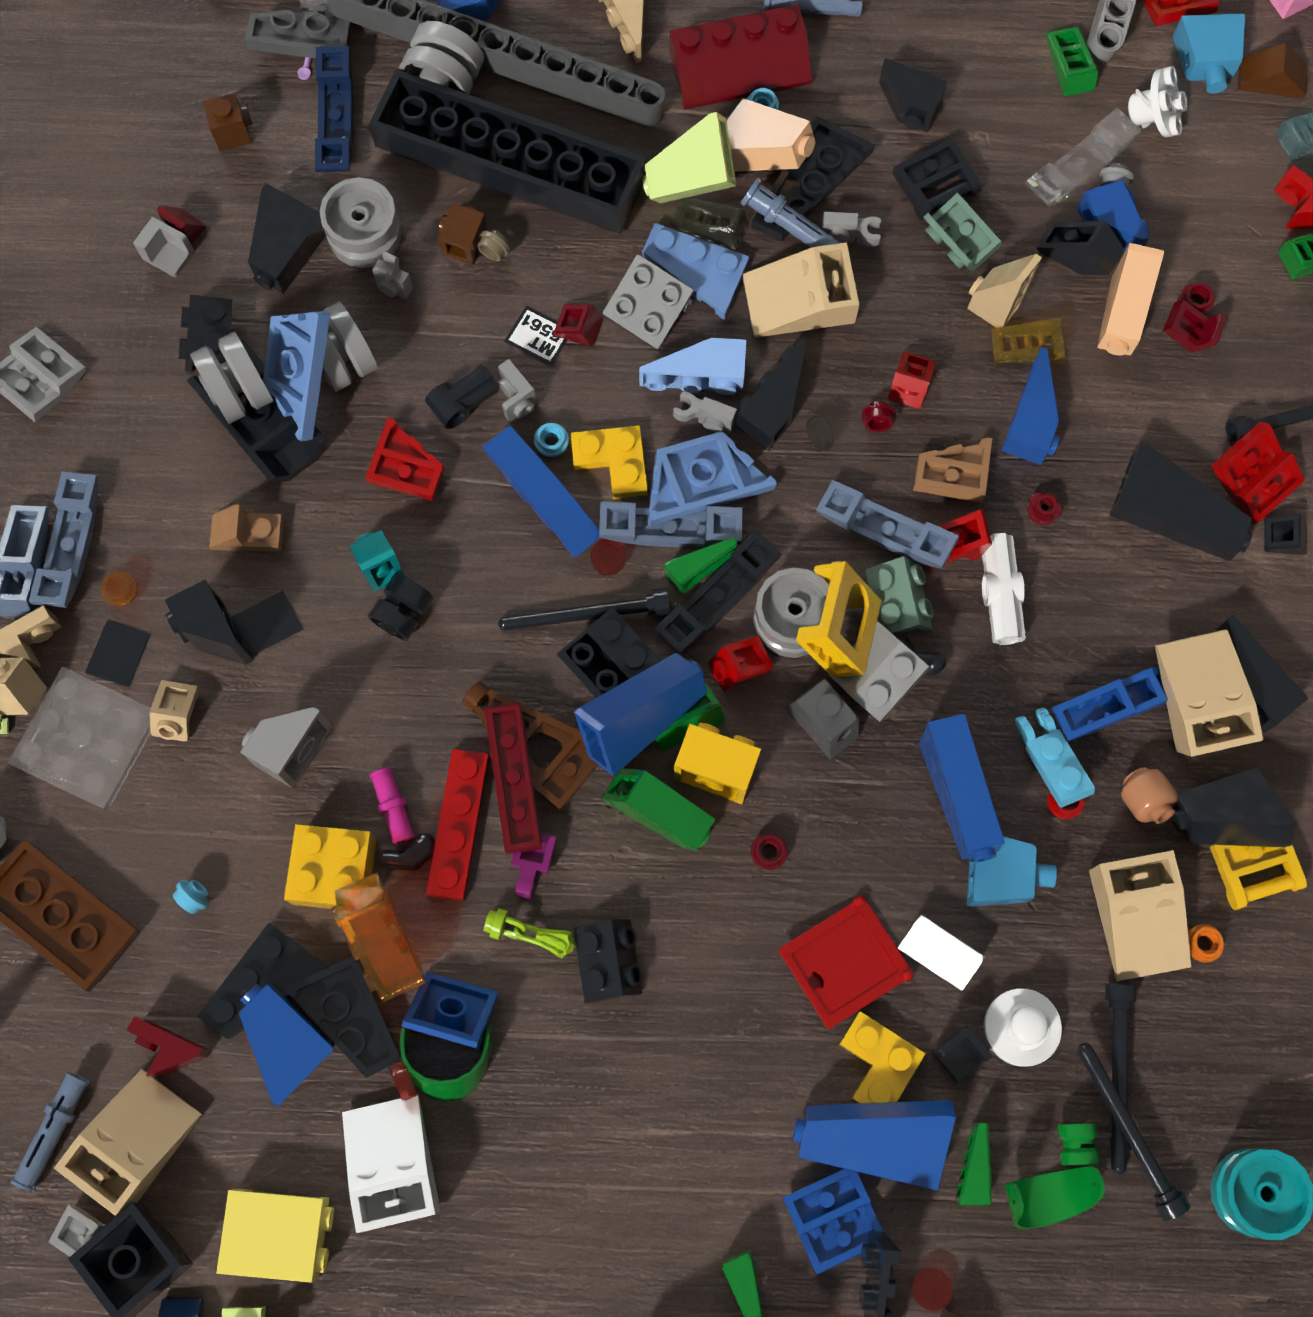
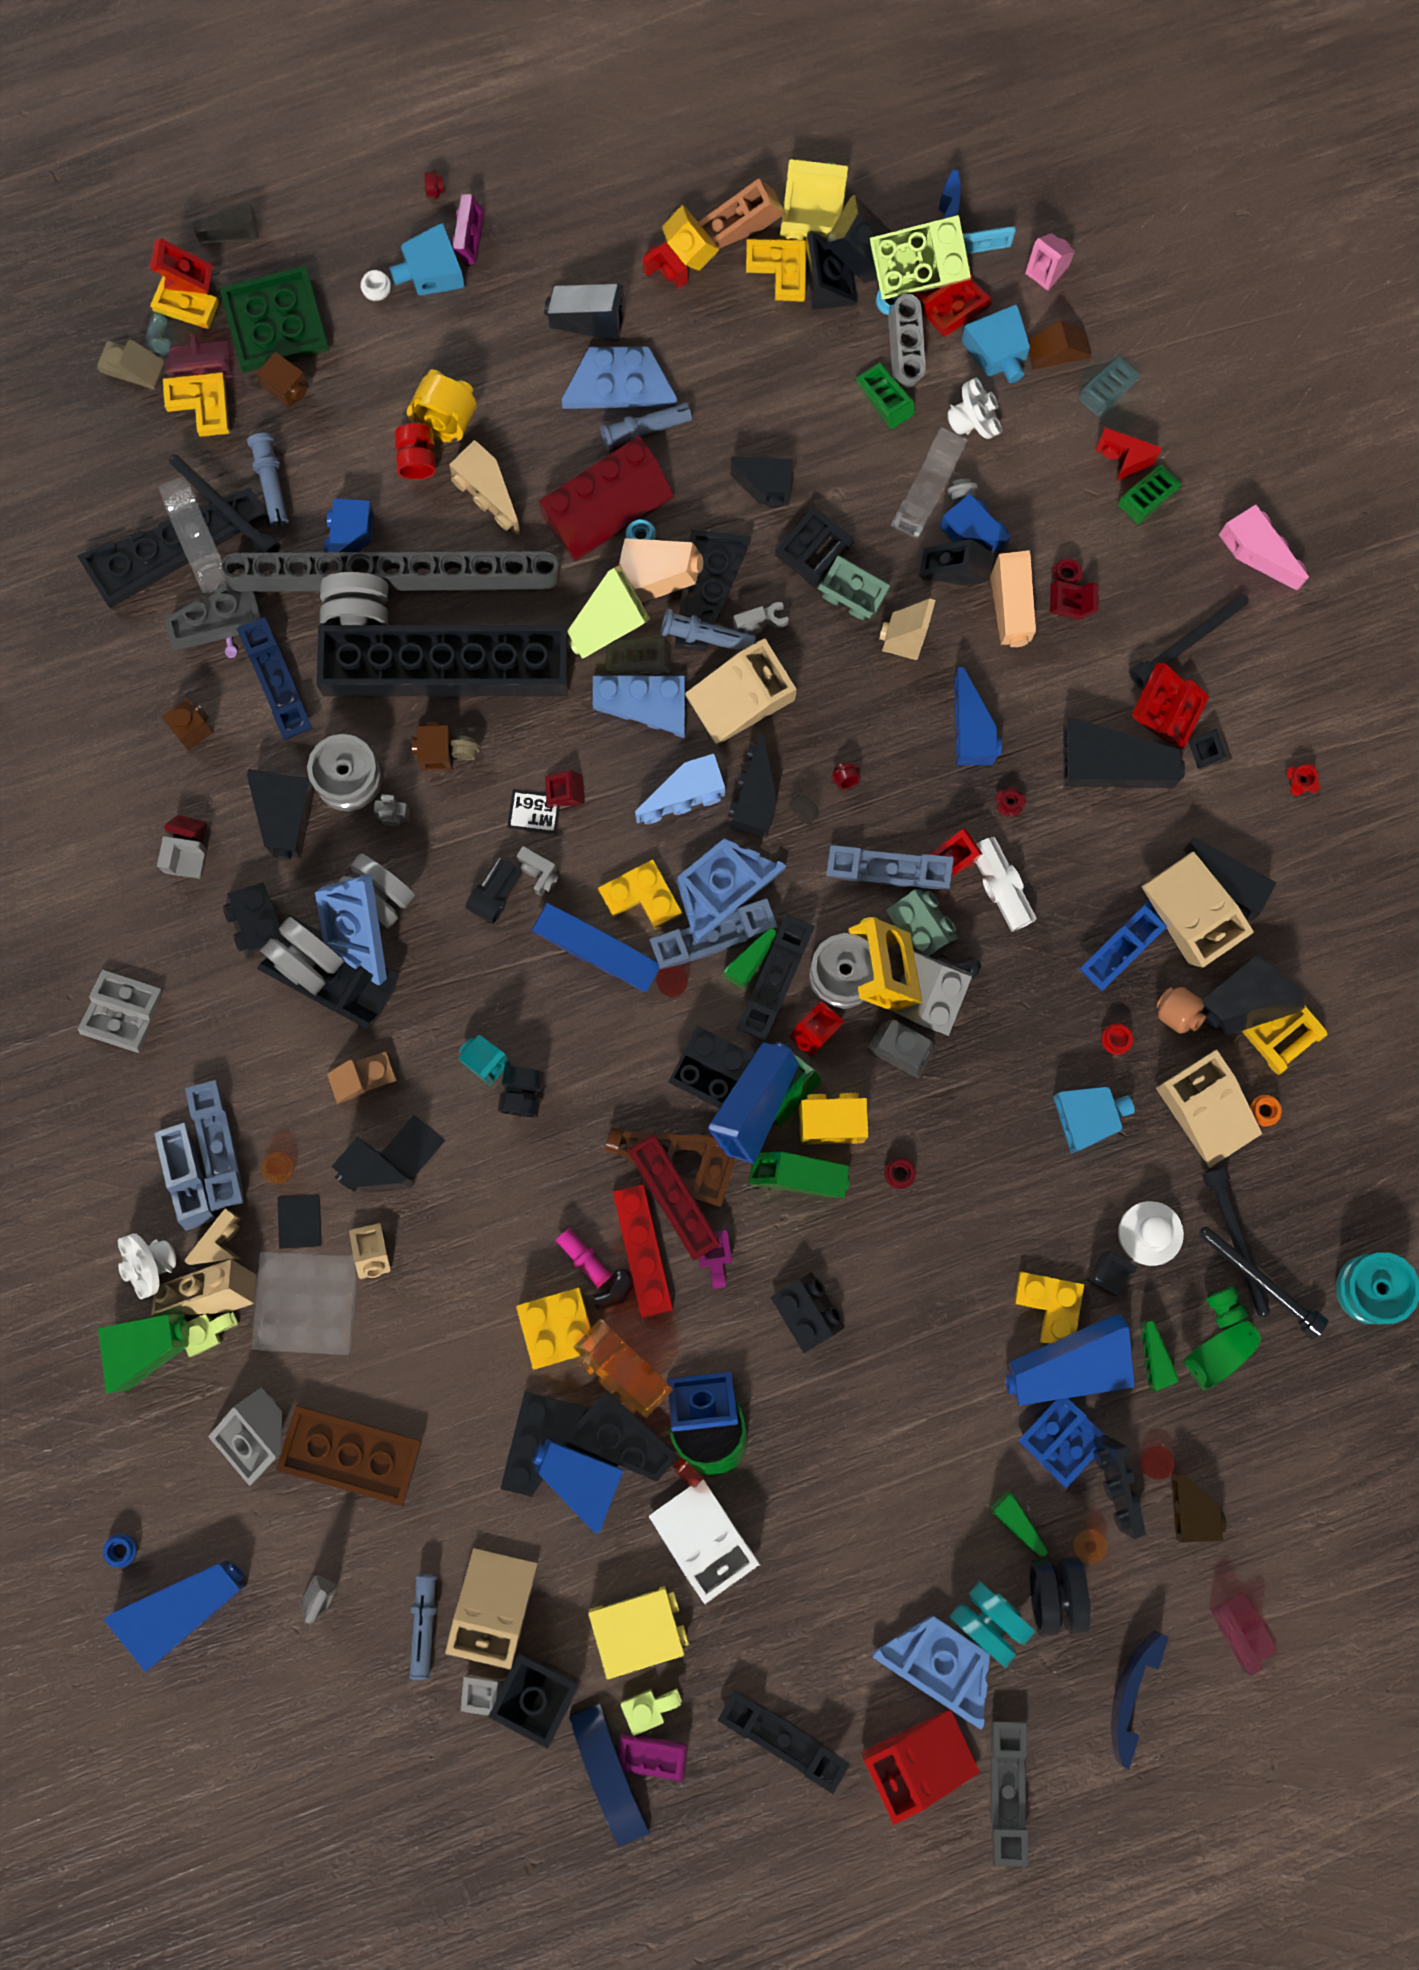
camera: 25 degrees left, 5 degrees up
(174, 1049) = (495, 1522): dark red slope -> none
(191, 896) = (452, 1396): medium azure plate -> none
(286, 743) = (478, 1244): light grey slope -> none
(404, 464) = (470, 969): red wing -> none
(551, 430) = (581, 890): medium azure plate -> none
(556, 941) = (760, 1313): lime piece -> none
(648, 301) = (616, 748): light grey hinge -> none
(653, 603) = (726, 1006): black piece -> none
(710, 413) = (711, 827): light grey plate -> none
(851, 957) = (999, 1233): red container -> none
(911, 380) = (861, 731): red slope -> none
(941, 952) = (1065, 1200): slope -> none
(955, 471) = (927, 798): medium nougat wing -> none
(961, 787) = (1034, 1065): blue slope -> none
(1041, 328) = (948, 648): clear yellow slope -> none
(1055, 760) = (1097, 1010): medium azure hinge -> none

